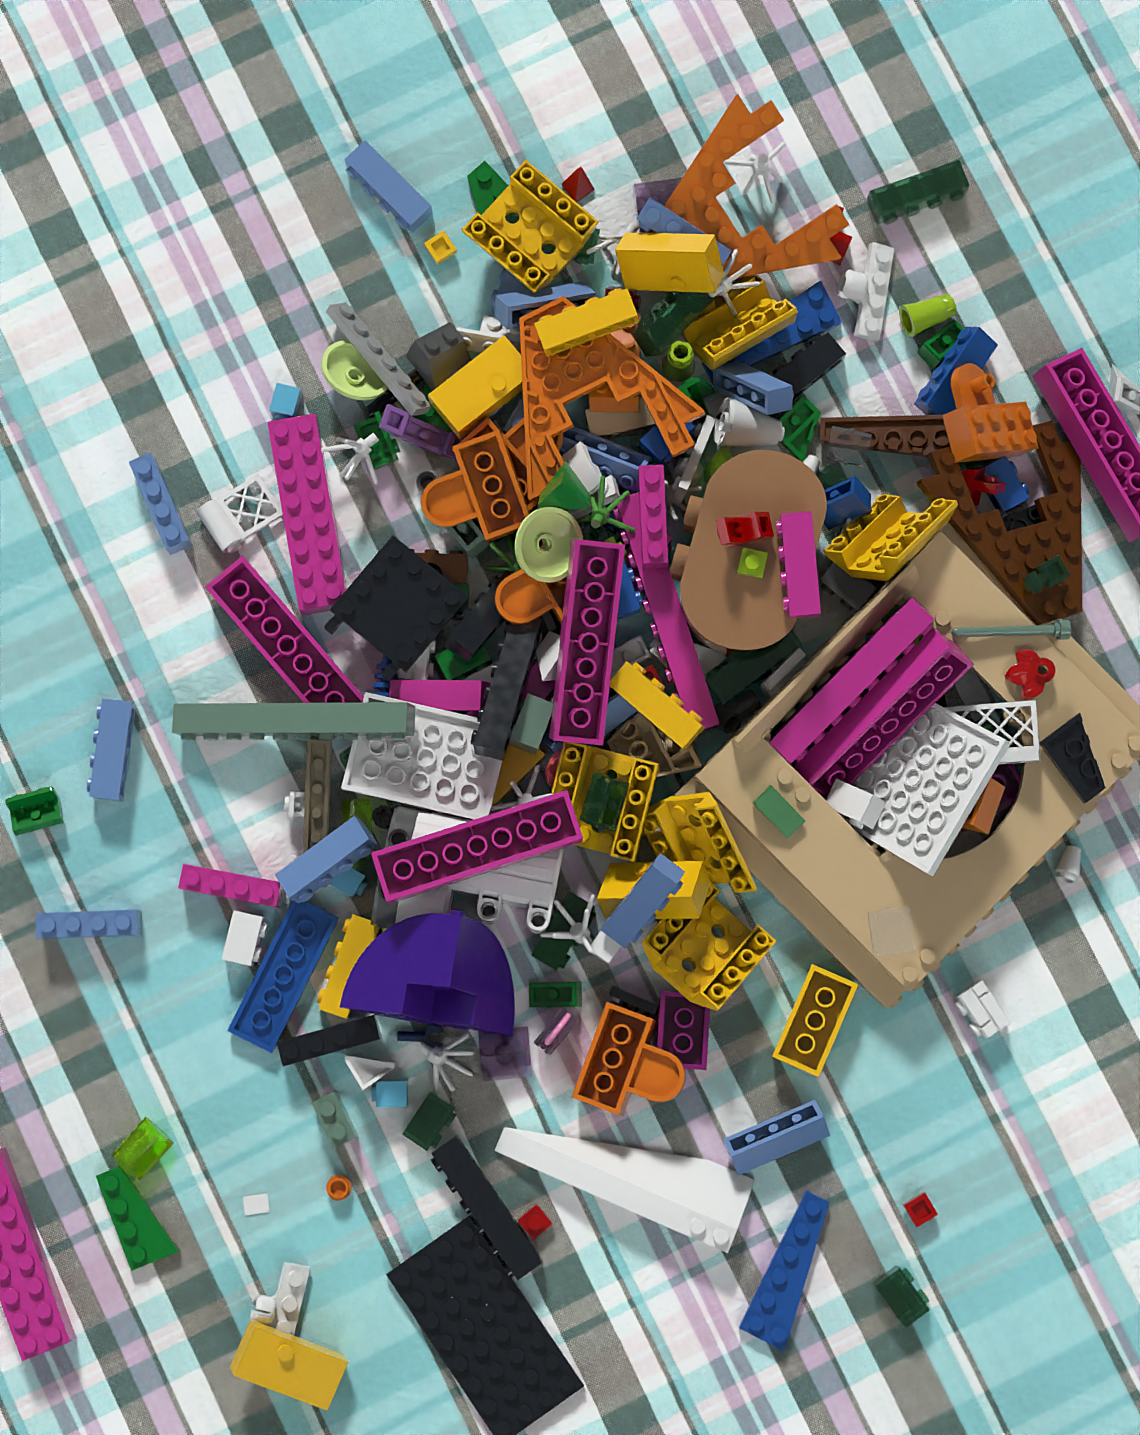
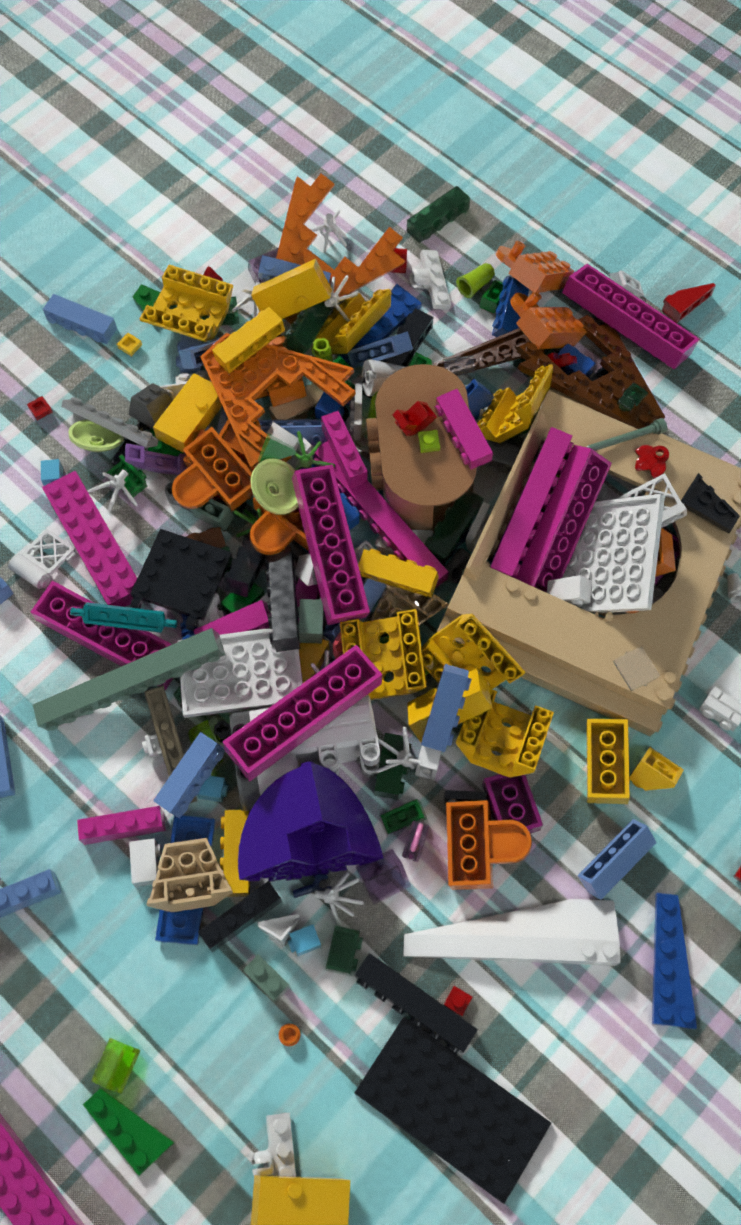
camera: 20 degrees left, 15 degrees down
(256, 1204) = (226, 1076): white sticker -> none
(285, 976) = (188, 878): none -> tan wedge
(298, 301) = (39, 408): none -> red plate
(311, 638) = (123, 617): none -> teal plate
(604, 801) = (387, 651): clear green brick -> none
(778, 811) = (518, 610): green slope -> none
(867, 1054) = (655, 772): none -> yellow slope
(1002, 340) = (537, 270): none -> orange brick

